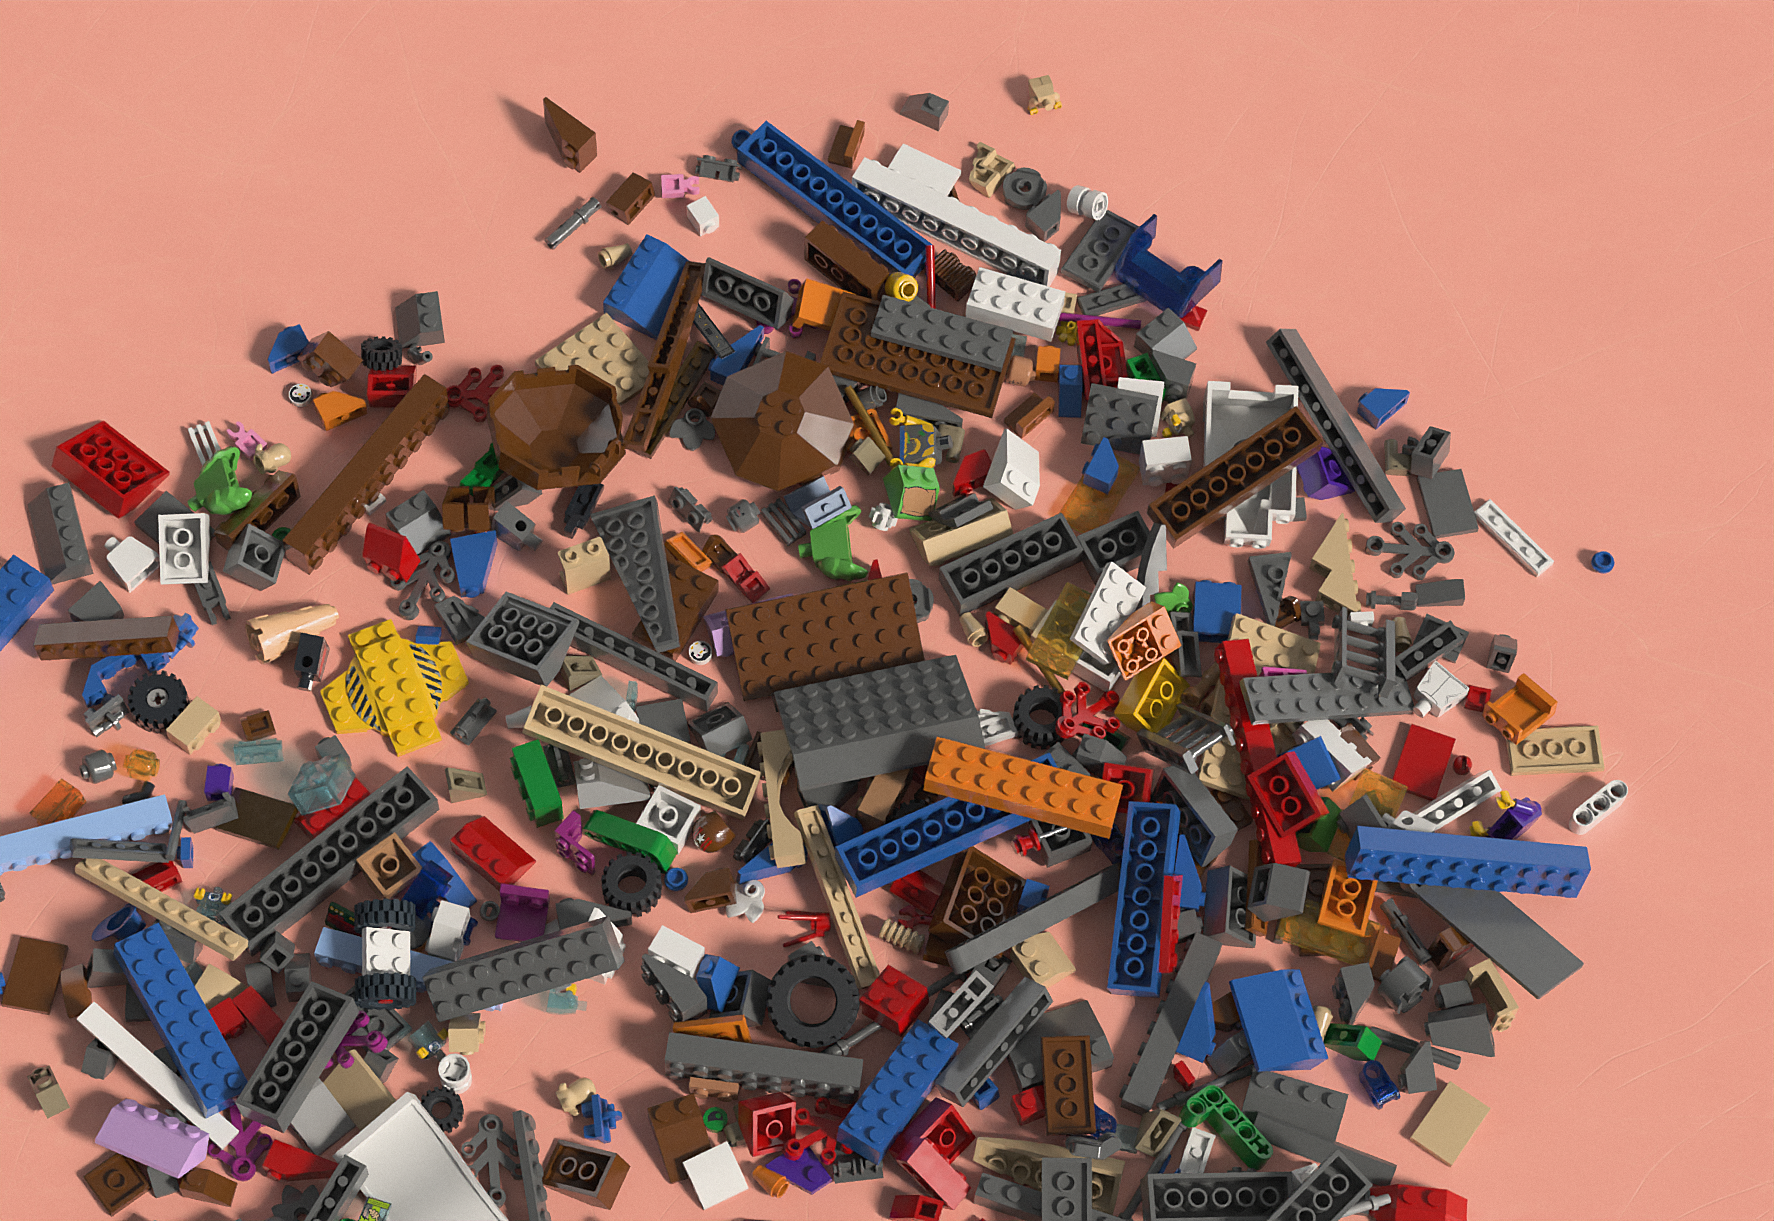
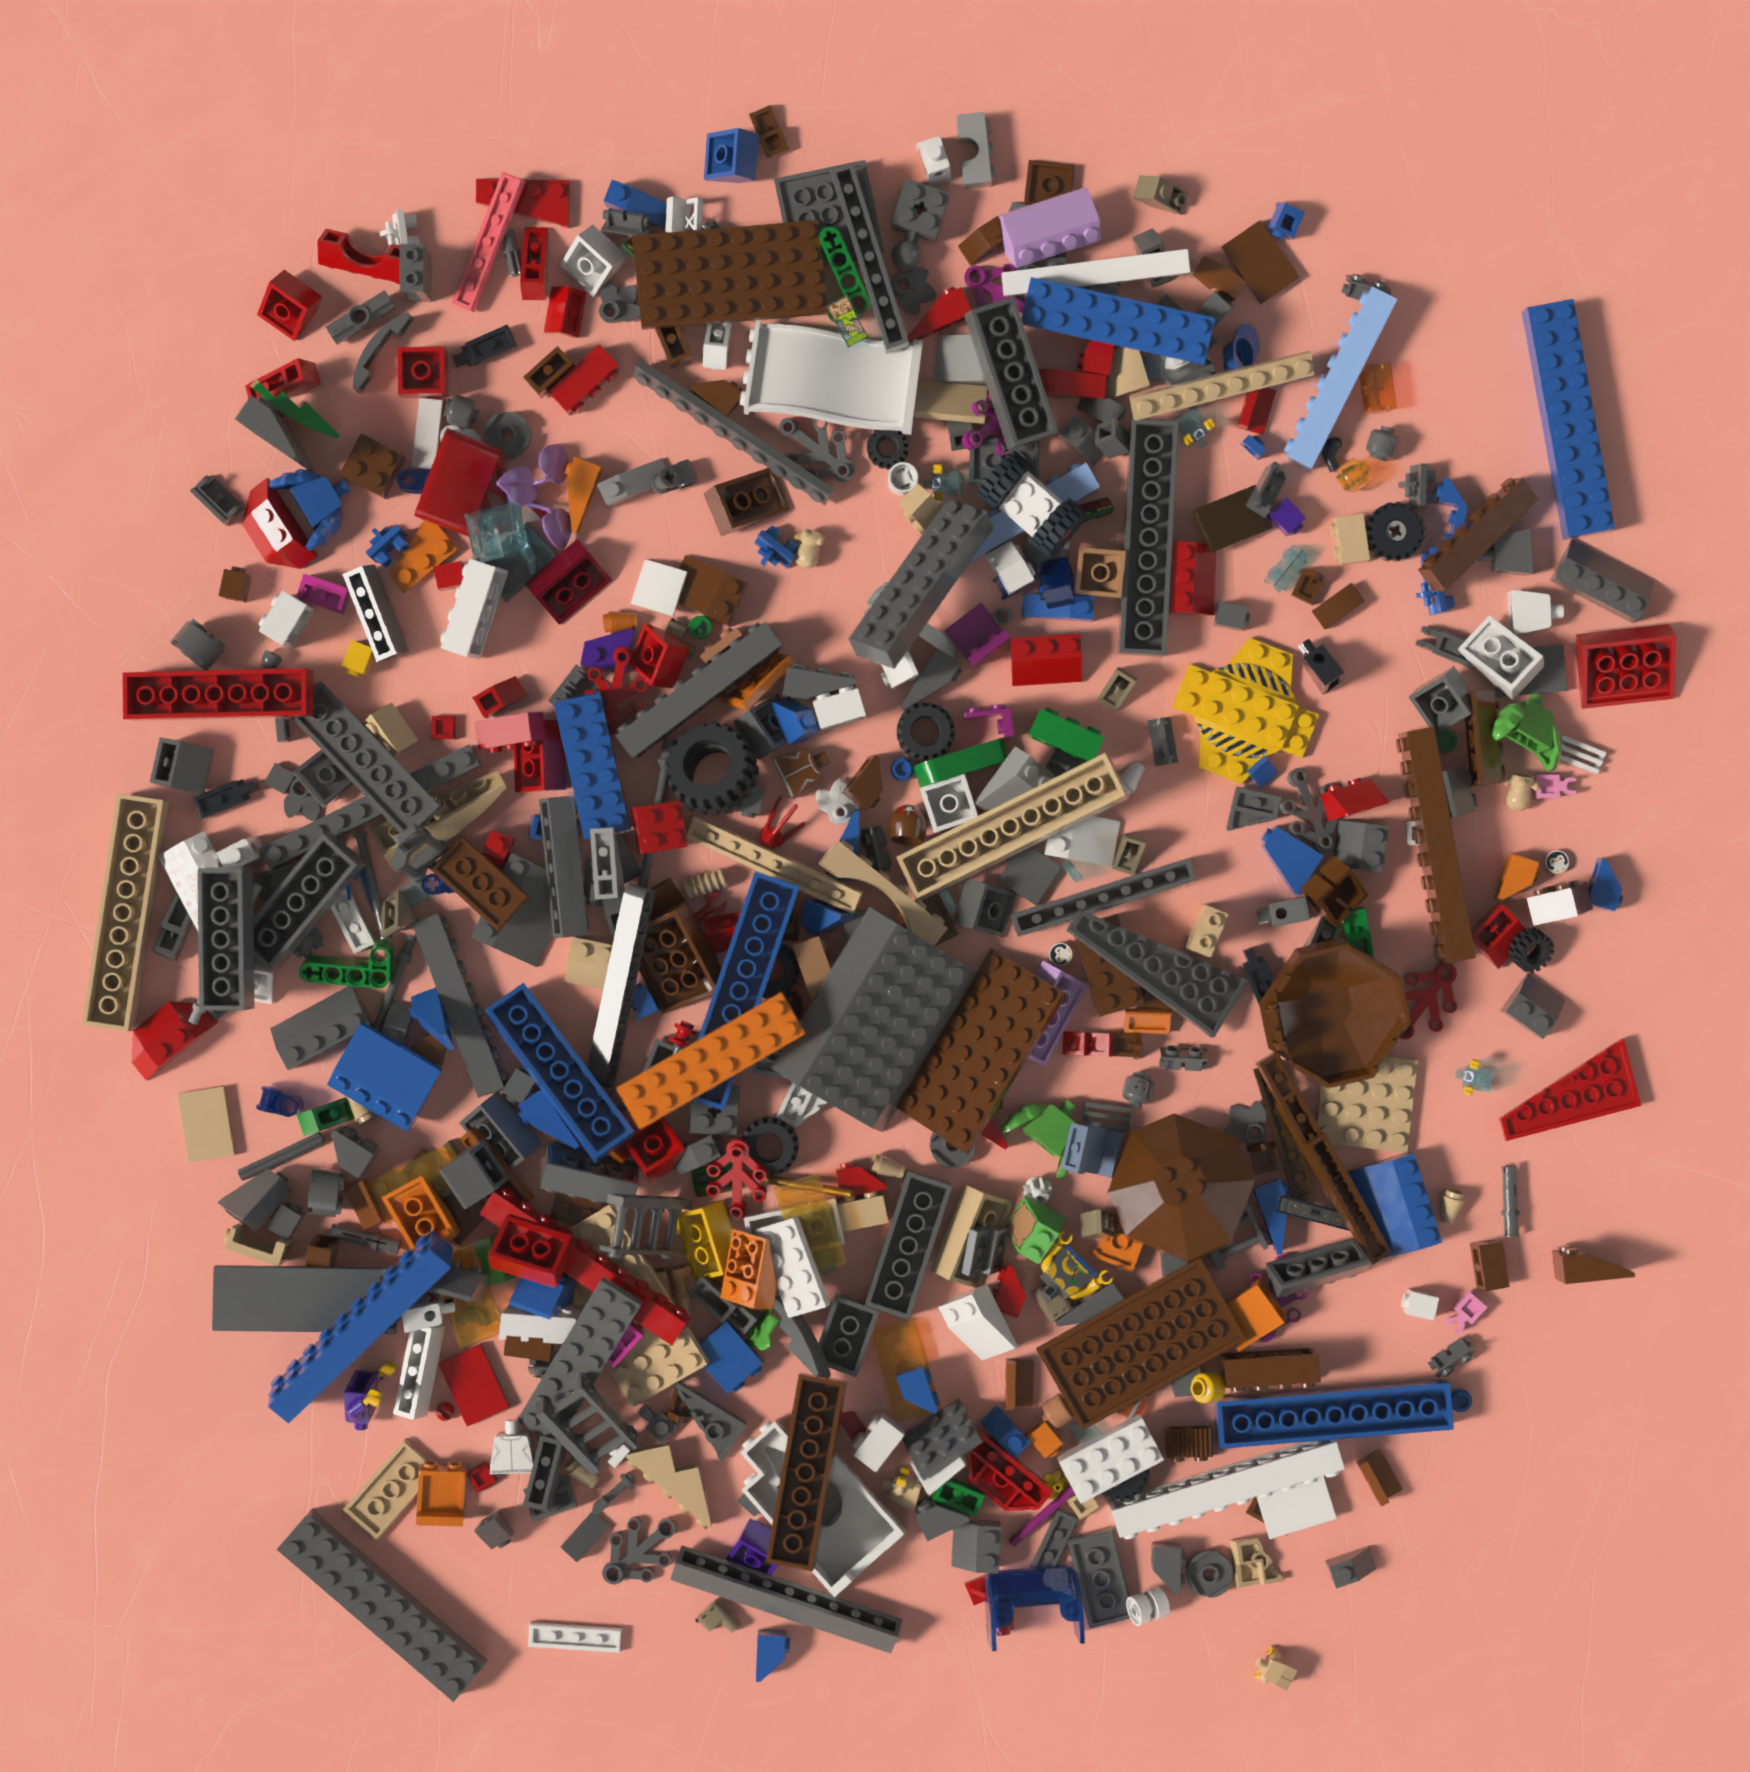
camera: 145 degrees right, 25 degrees up
(118, 850) = (1296, 396): dark grey tile -> none
(176, 830) = (1277, 453): dark grey bar -> none
(252, 691) = (1338, 605): none -> reddish brown slope
(282, 631) = (1362, 671): light nougat cone -> none
(312, 490) = (1458, 791): none -> dark grey slope
(321, 784) = (1210, 581): clear light blue brick -> none
(415, 354) = (1501, 977): dark grey arm -> none
(445, 239) = (1587, 1092): none -> red wing
(509, 313) = (1475, 1078): none -> clear light blue piece
(523, 639) = (1187, 831): dark grey slope -> none
(750, 946) = (800, 770): none -> reddish brown torso
(867, 421) = (1120, 1253): pearl gold bar -> none
(872, 397) = (1143, 1274): dark grey brick -> none
(930, 276) = (1198, 1421): red bar -> none
(942, 333) = (1138, 1377): dark grey plate -> none
(1169, 923) = (525, 1074): red wing -> none
(1183, 1075) = (416, 974): red tile -> none
(1319, 1148) = (271, 1017): dark grey tile -> none
(1418, 1070) = (259, 1138): dark grey slope -> none
(1428, 452) = (696, 1644): dark grey brick -> none
(1448, 504) = (648, 1618): dark grey tile -> none
(1602, 562) = (492, 1681): blue plate -> none
(1605, 800) = (312, 1482): white beam -> none
(1636, 679) = (382, 1605): none -> dark grey brick

